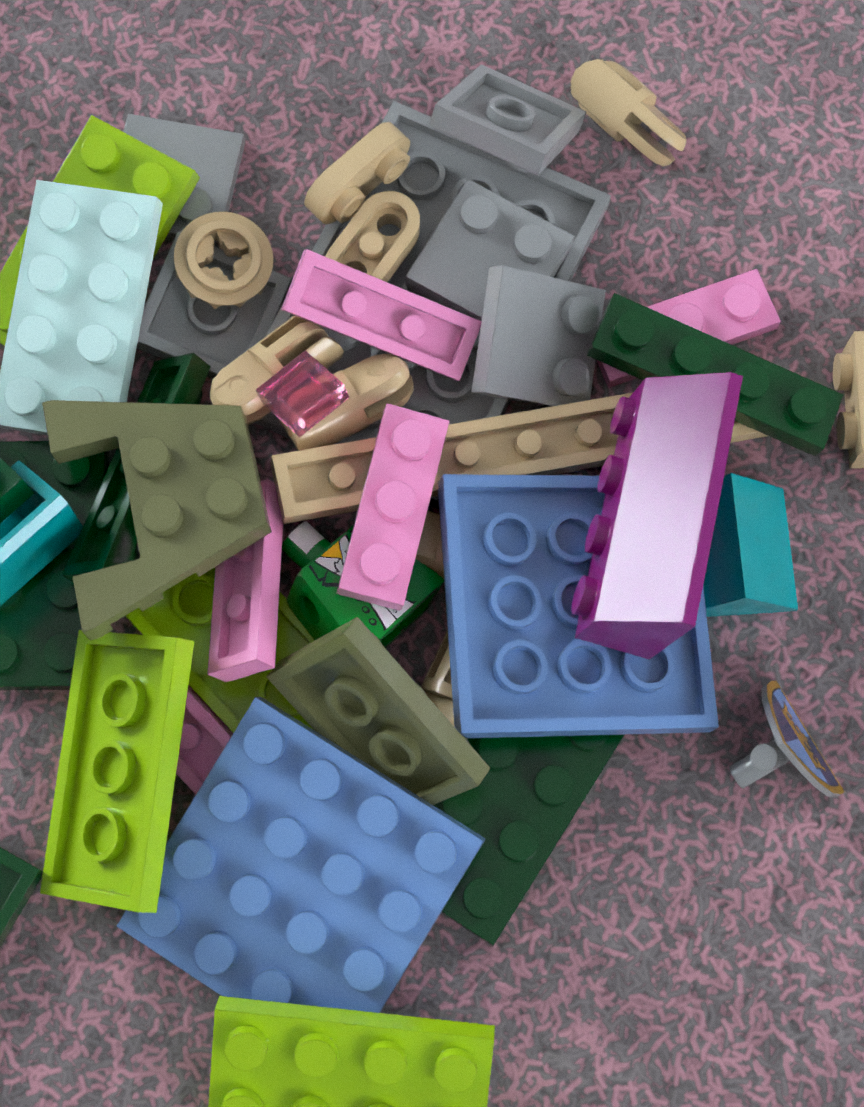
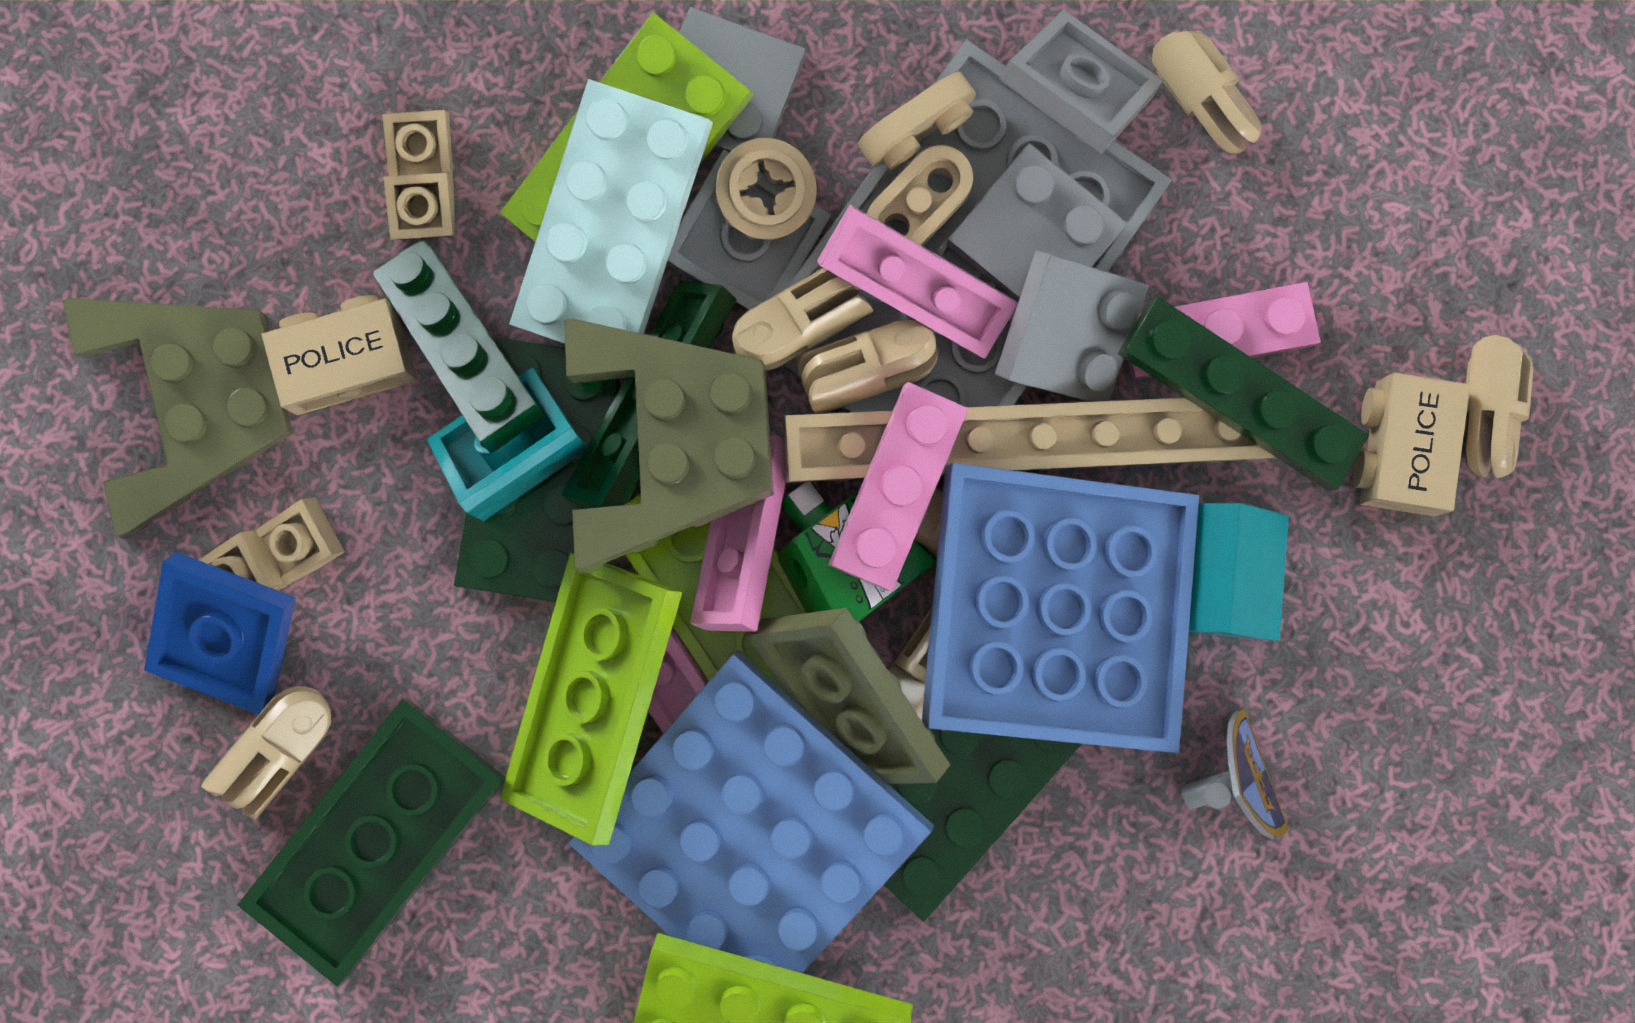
camera: 10 degrees right, 10 degrees up
(302, 393) = (825, 356): clear pink tile -> none
(657, 512) = (1161, 538): slope -> none

